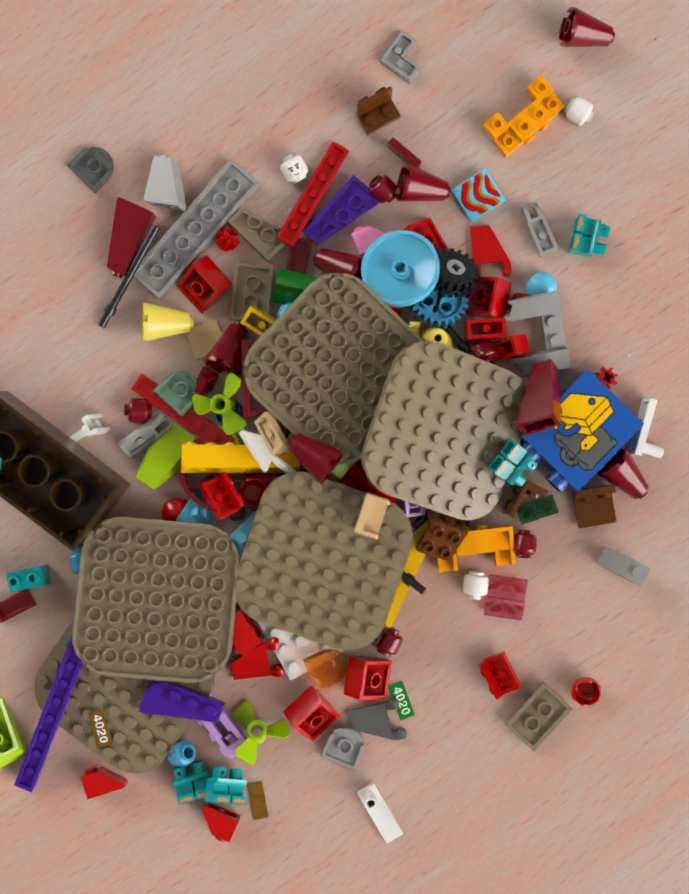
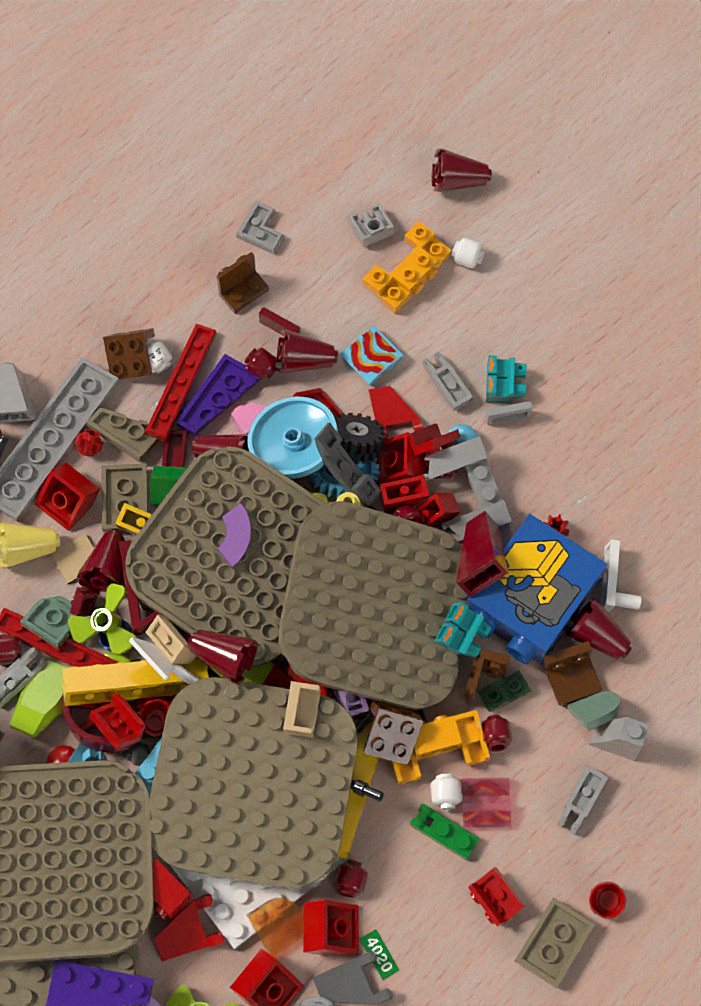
camera: 10 degrees left, 20 degrees down
(271, 161) = (128, 353): none -> reddish brown bracket
(341, 354) = (237, 535): none -> medium lavender tile
(439, 305) = (343, 467): none -> dark grey slope
(469, 615) = (444, 832): none -> green plate
(508, 69) = (373, 228): none -> light grey brick
(516, 287) = (430, 440): none -> red bracket
(583, 607) = (583, 797): none -> light grey hinge
(586, 268) = (508, 413): none -> light grey tile
(608, 539) = (596, 709): none -> sand green tile

